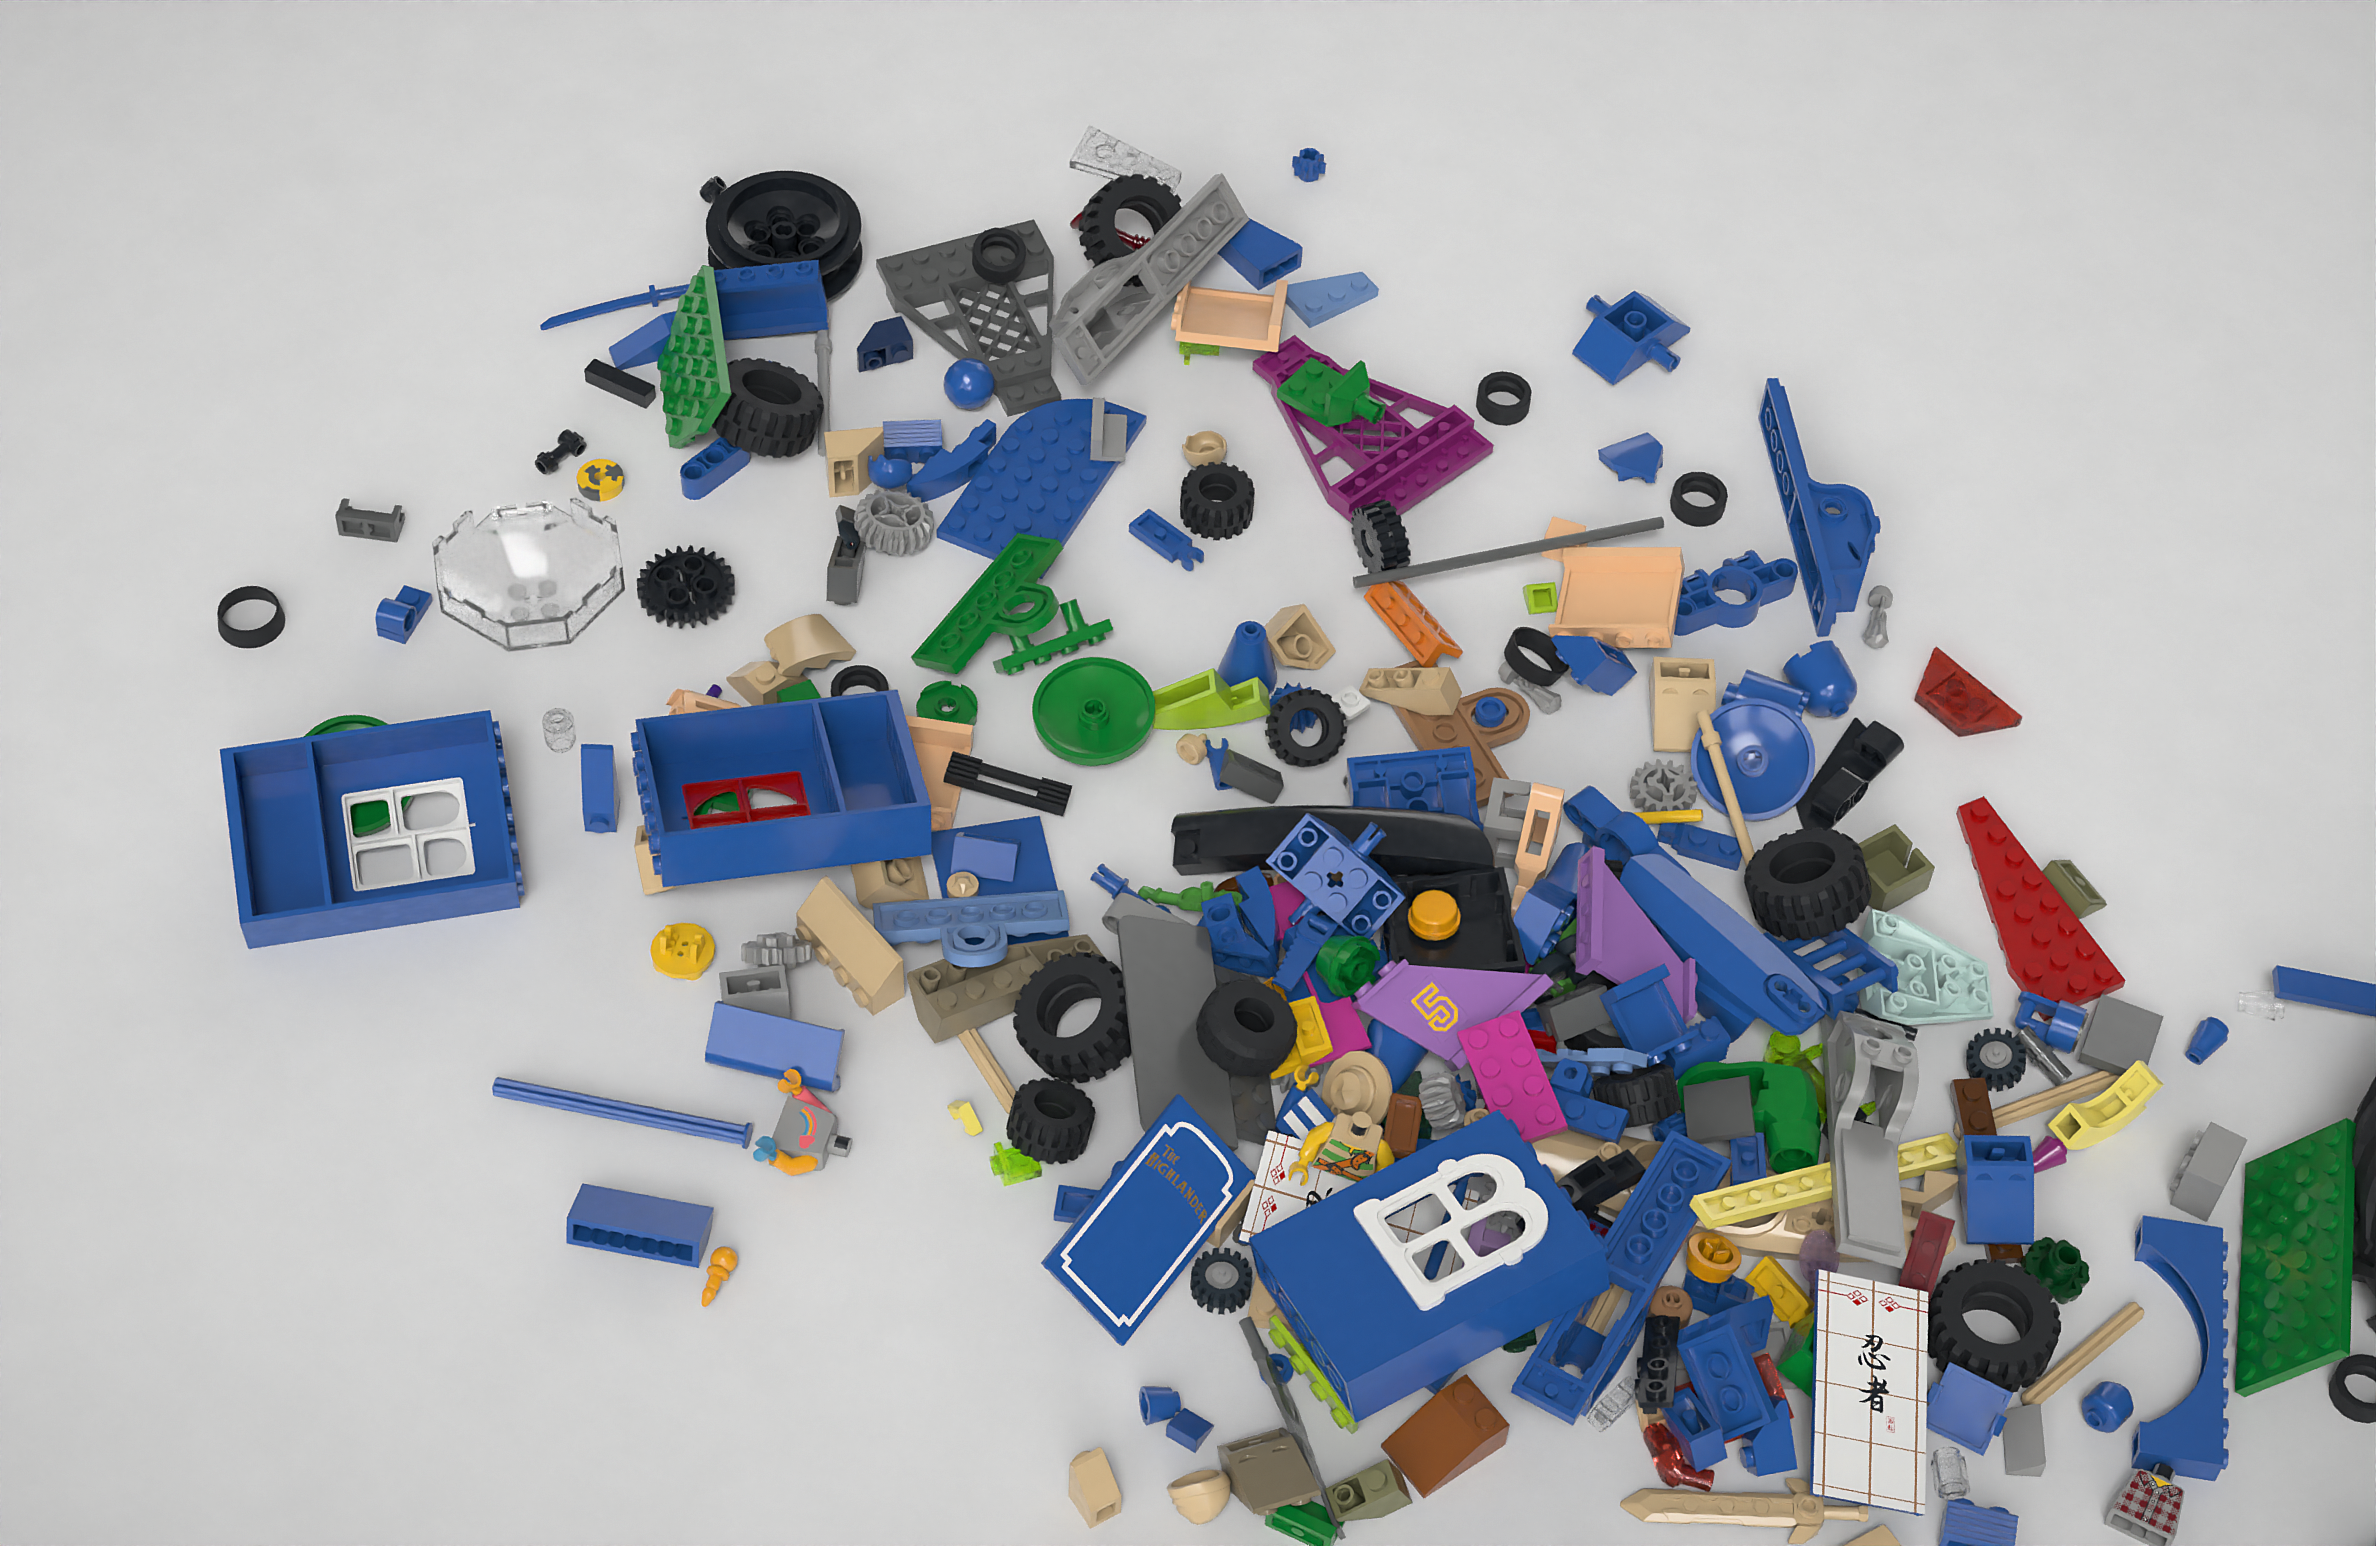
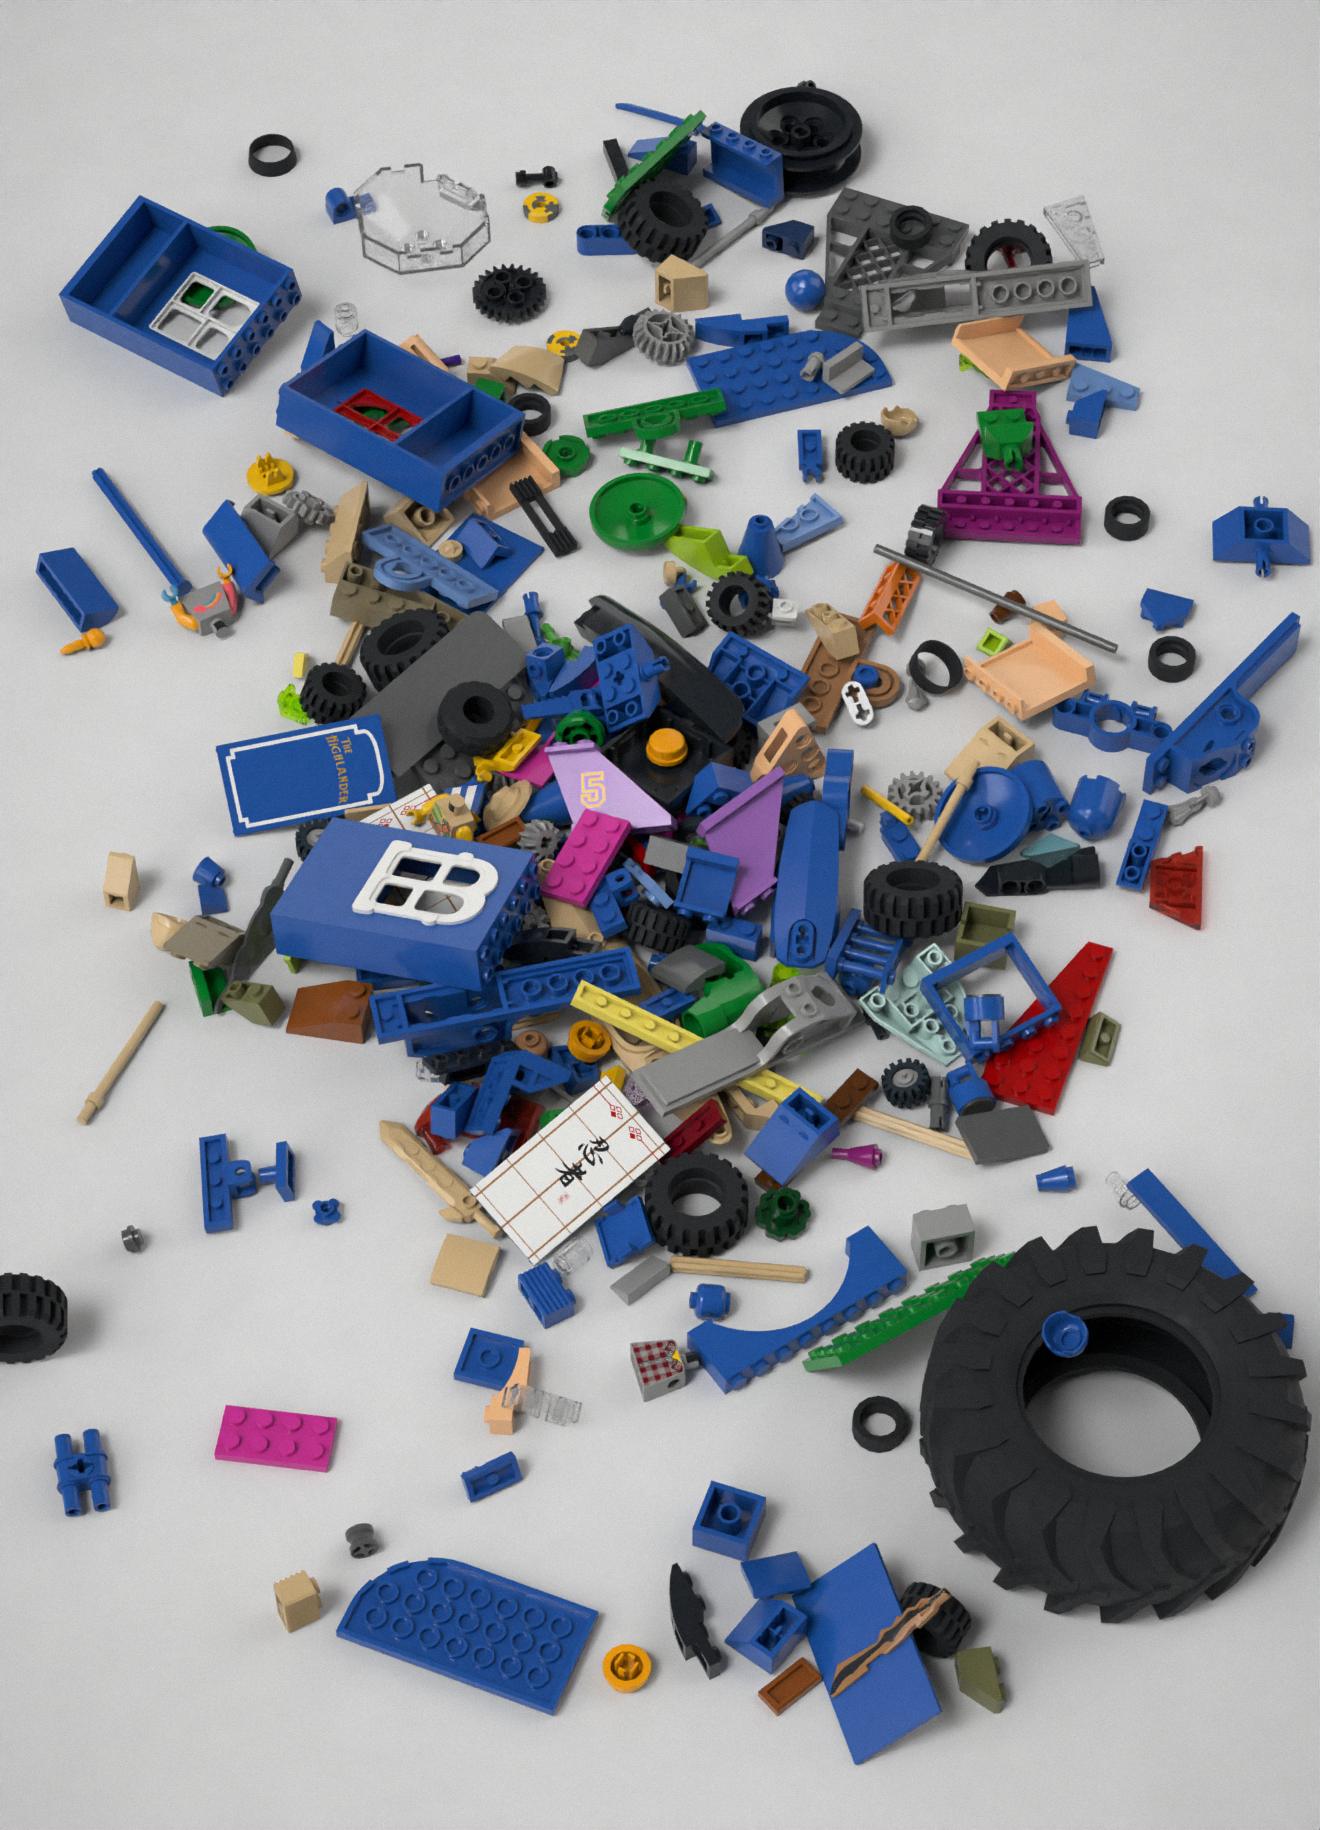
camera: 50 degrees right, 0 degrees up
(369, 523) = (391, 147): dark grey hinge -> none
(798, 591) = (563, 344): none -> piece
(889, 473) = (688, 305): blue hair -> none
(912, 439) = (734, 299): brick -> none
(1070, 446) = (814, 363): none -> light grey pin
(1246, 598) = (807, 523): none -> medium blue wing
(1298, 638) = (806, 559): tan slope -> none
(1309, 165) = (1190, 304): blue gear -> none
(1356, 327) = (1087, 415): none -> blue slope
(1512, 566) = (1000, 613): none -> reddish brown cone
(1516, 736) = (853, 706): none -> beam
(1594, 663) = (962, 696): blue slope -> none
(1835, 748) = (1050, 850): none -> clear light blue piece
(1890, 687) = (1142, 845): none -> blue slope
(2009, 932) = (983, 1008): none -> blue piece
(2029, 888) = (971, 962): none -> blue window
(2105, 1115) = (926, 1163): light yellow arch -> none

